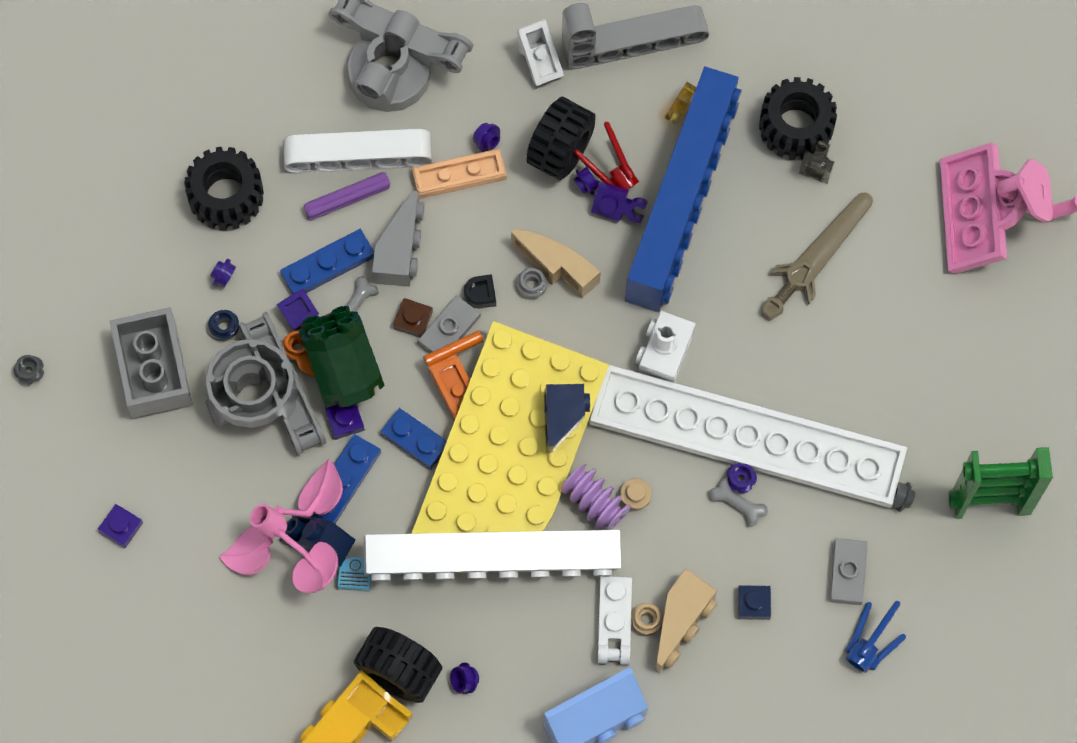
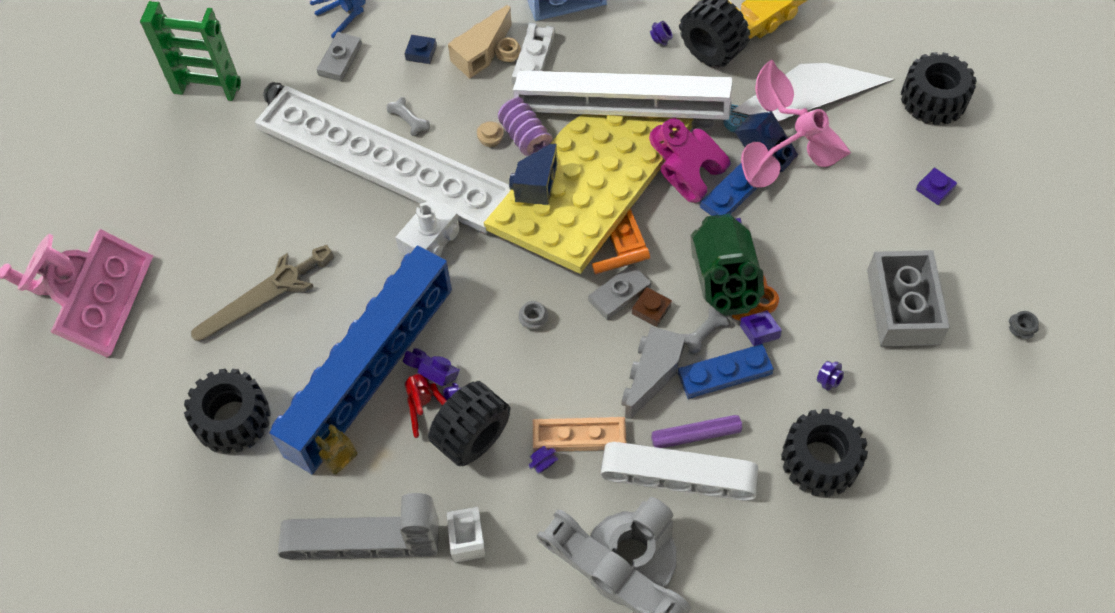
camera: 165 degrees left, 10 degrees down
(114, 625) = (922, 83): none -> black tyre
(223, 316) = (833, 324): dark blue plate -> none
(250, 362) = (787, 259): light grey piece -> none
(273, 637) = (818, 85): none -> white sticker
(404, 487) = (685, 155): none -> dark pink piece
(414, 438) = (668, 208): blue plate -> none
(480, 292) = (583, 318): black tile -> none
(556, 261) = (505, 325): tan slope -> none
(741, 470) = (400, 124): dark purple plate -> none
(817, 164) = (224, 358): clear smoke plate -> none

